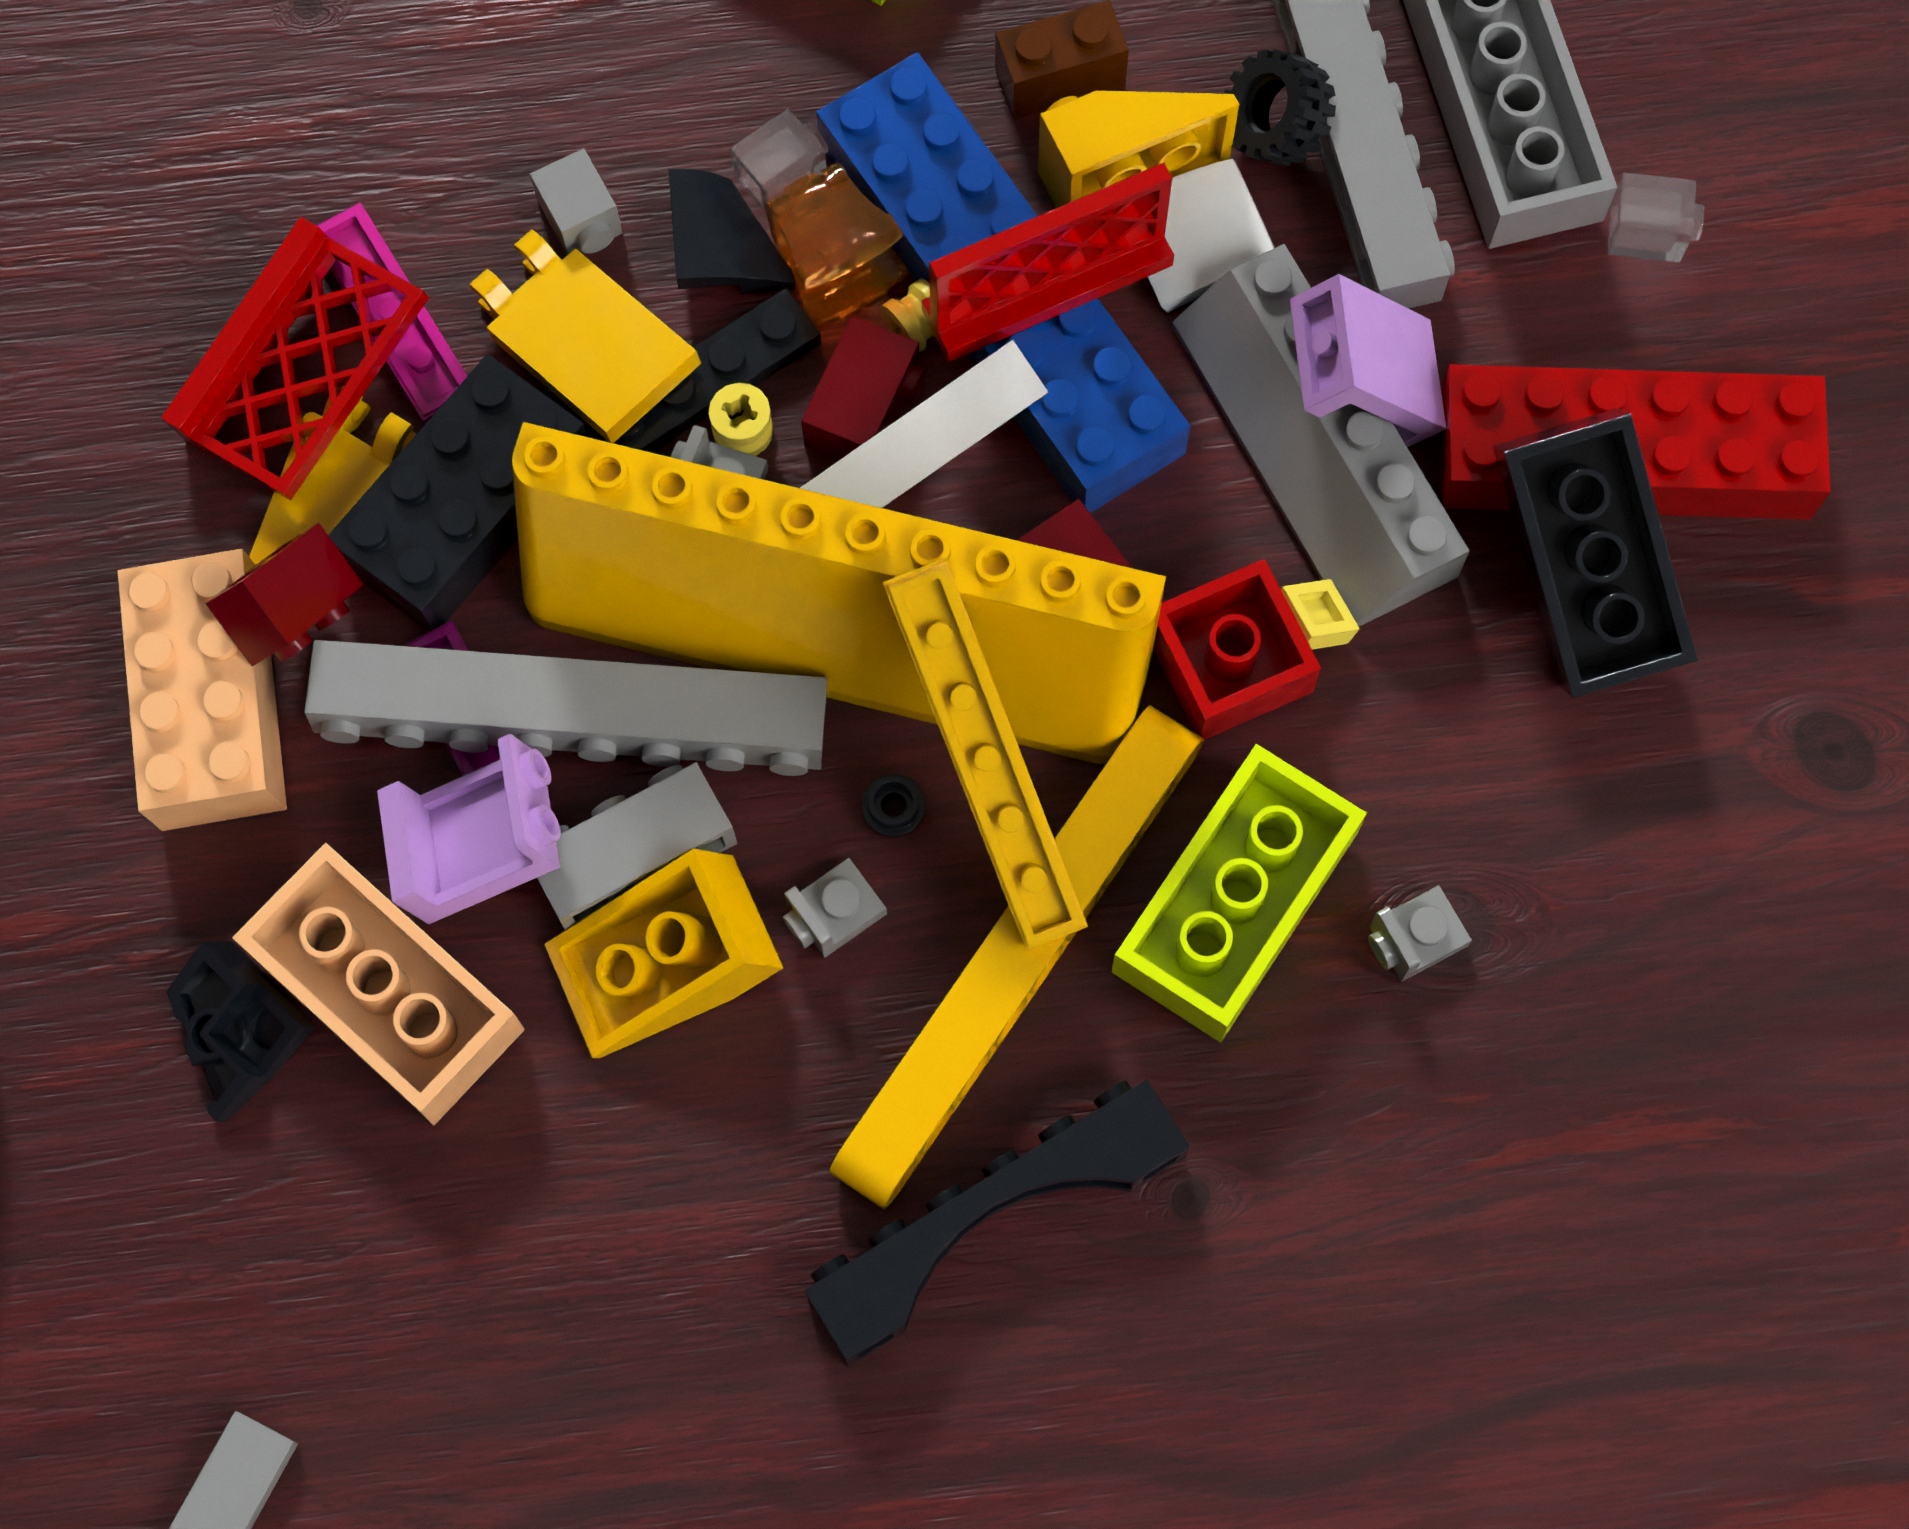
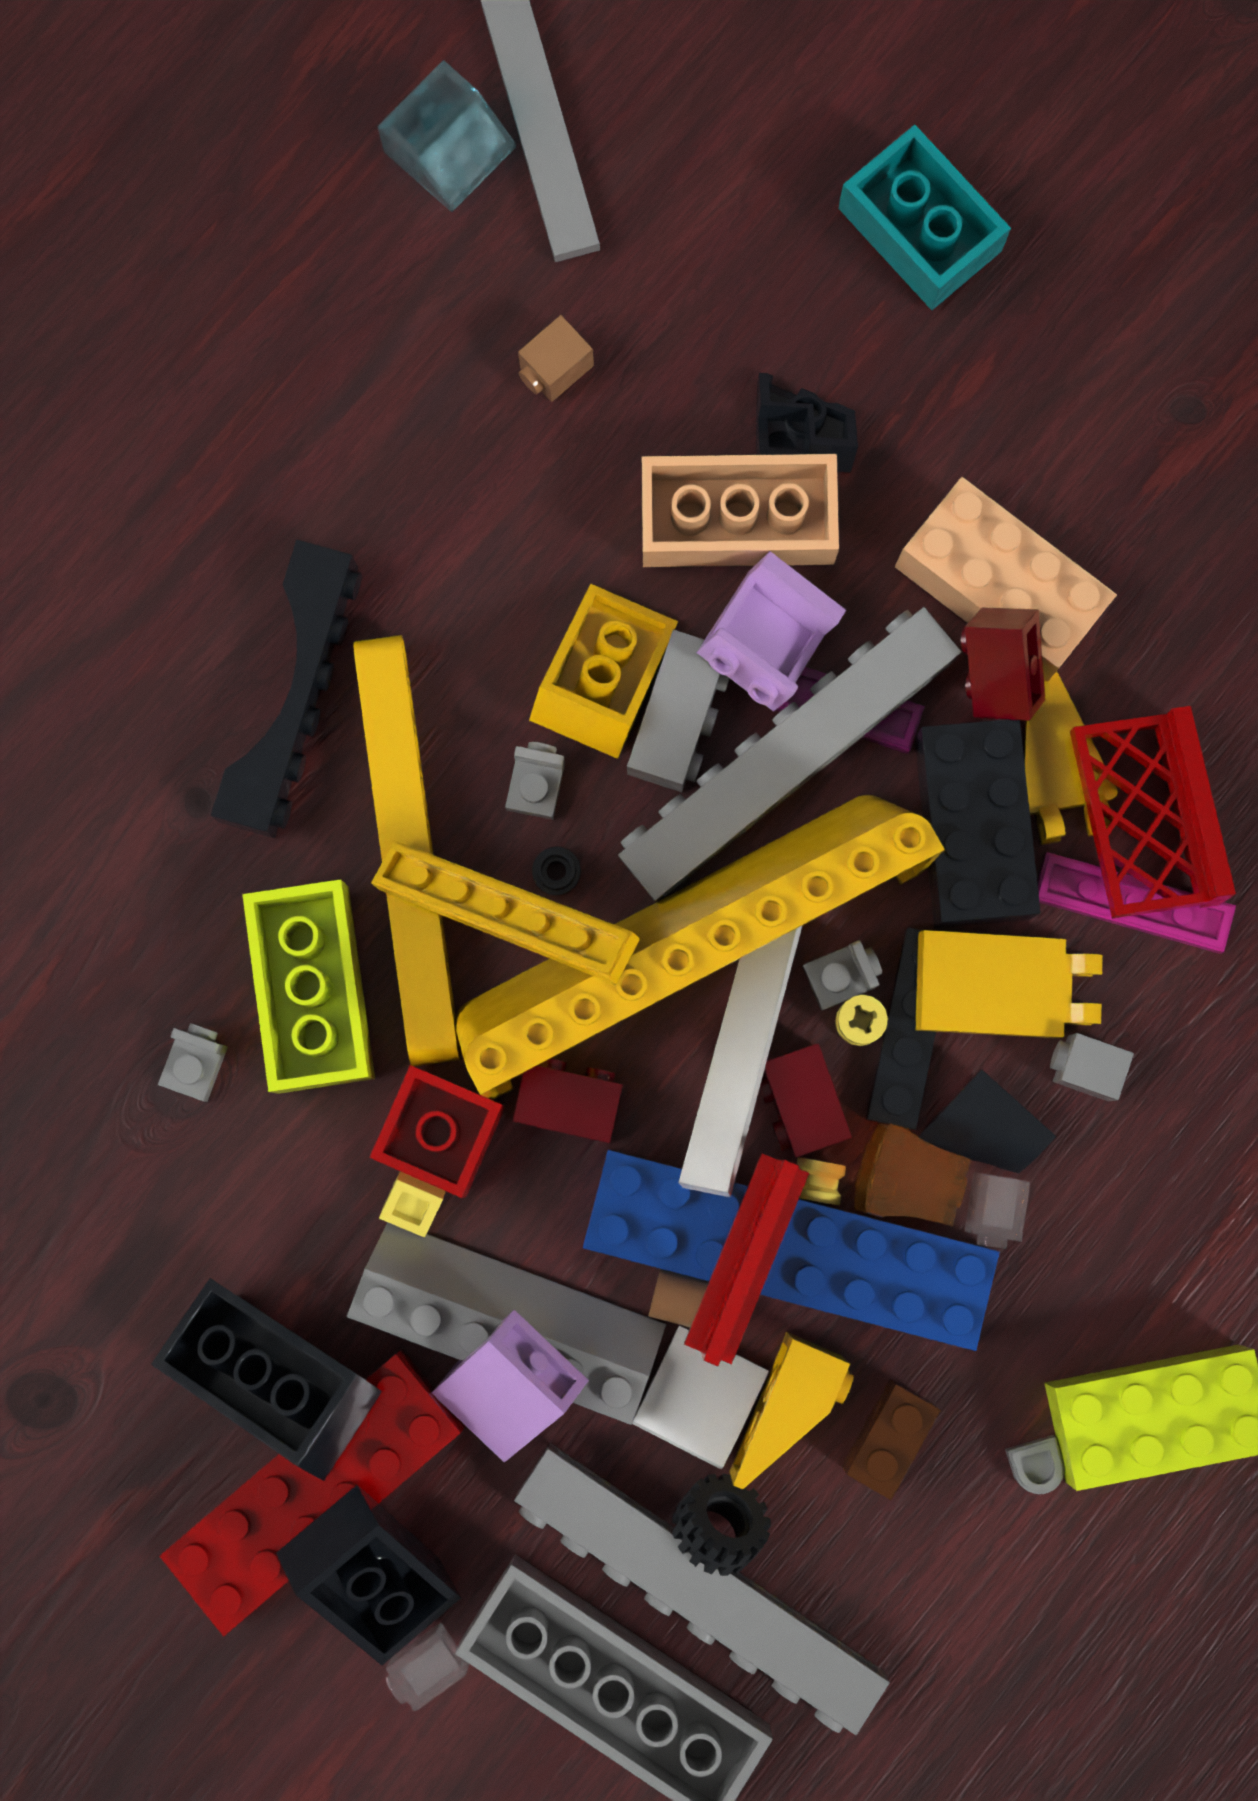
camera: 140 degrees right, 10 degrees up
(403, 1321) = (554, 359): none -> medium nougat brick
(1143, 321) = (676, 1297): none -> medium nougat brick
(1643, 313) = (368, 1575): none -> black brick

